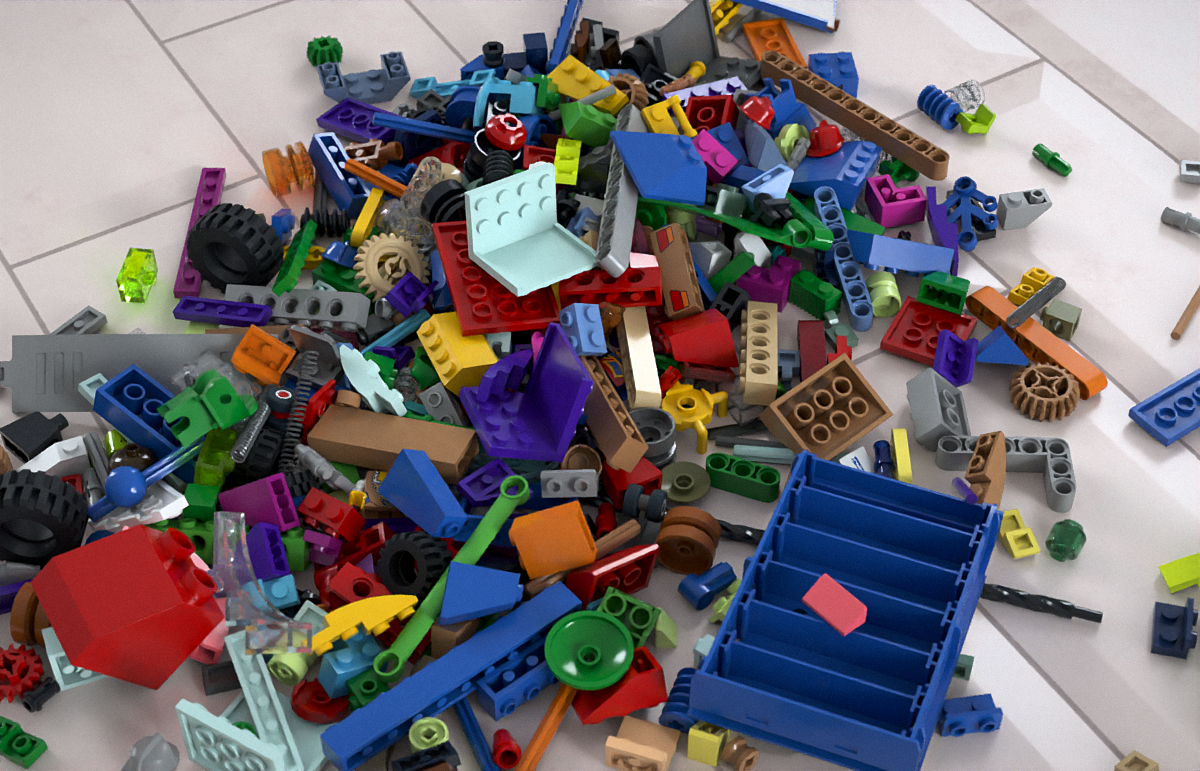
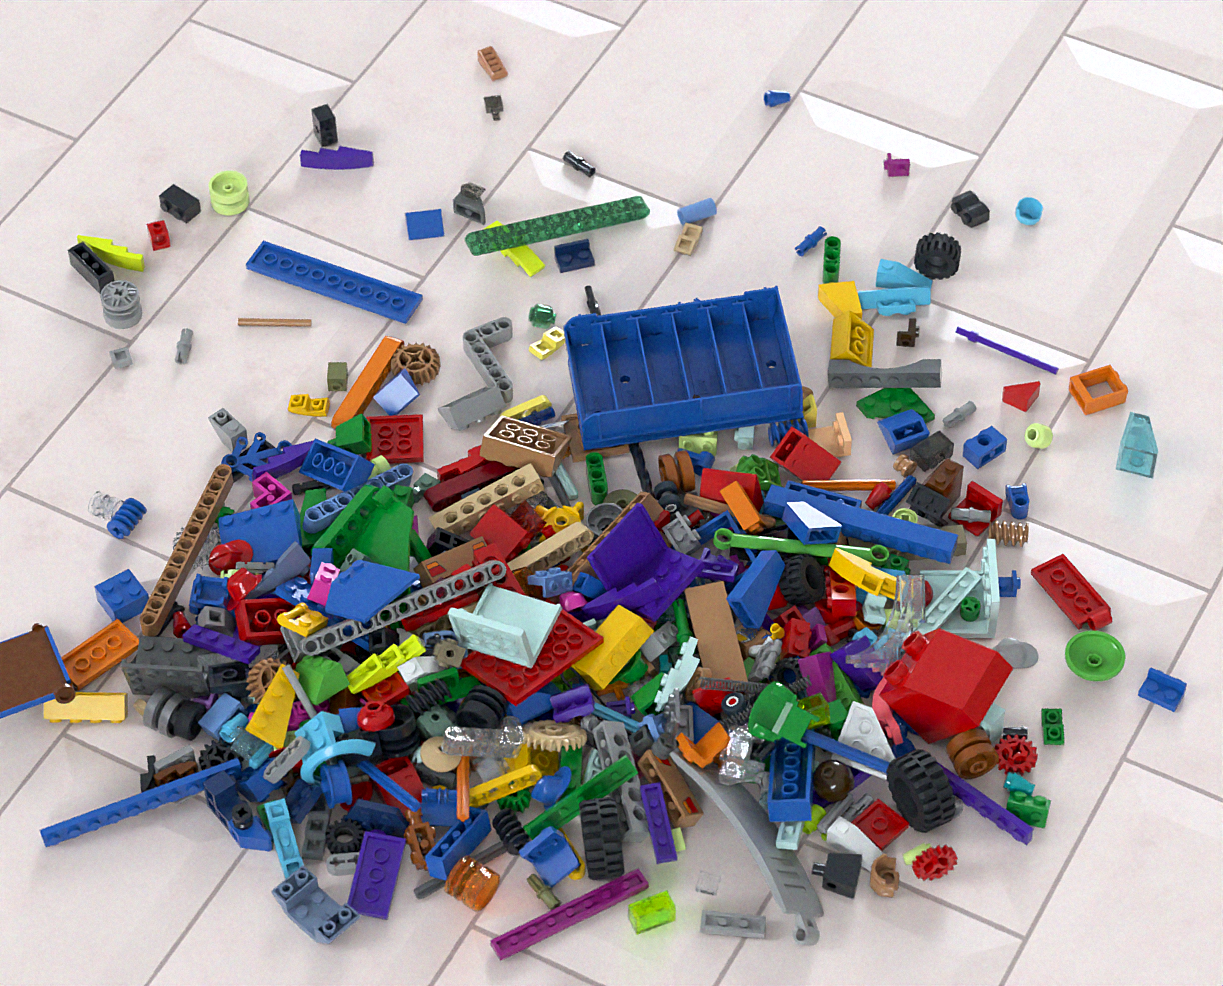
camera: 120 degrees left, 5 degrees up
(125, 486) = (863, 747): blue hair -> none
(324, 51) = (290, 966): green gear -> none
(547, 92) = (302, 721): green bracket -> none
(591, 224) = (443, 621): light grey bush -> none
(592, 637) = (802, 465): green dish -> none
(611, 54) = (189, 738): dark brown plate -> none
(679, 84) = (224, 662): nougat axle -> none
(771, 210) = (367, 523): black hips -> none
(772, 182) = (337, 535): light blue slope -> none
(835, 605) = (707, 353): coral slope -> none
(955, 358) = (423, 405): dark purple bracket -> none
(964, 490) = (535, 370): dark purple bar -> none
(978, 122) = (126, 490): lime bracket -> none
(988, 468) = (529, 358): medium nougat slope -> none
(1036, 302) = (321, 387): dark grey piece -> none
(1052, 160) = (151, 437): green axle -> none

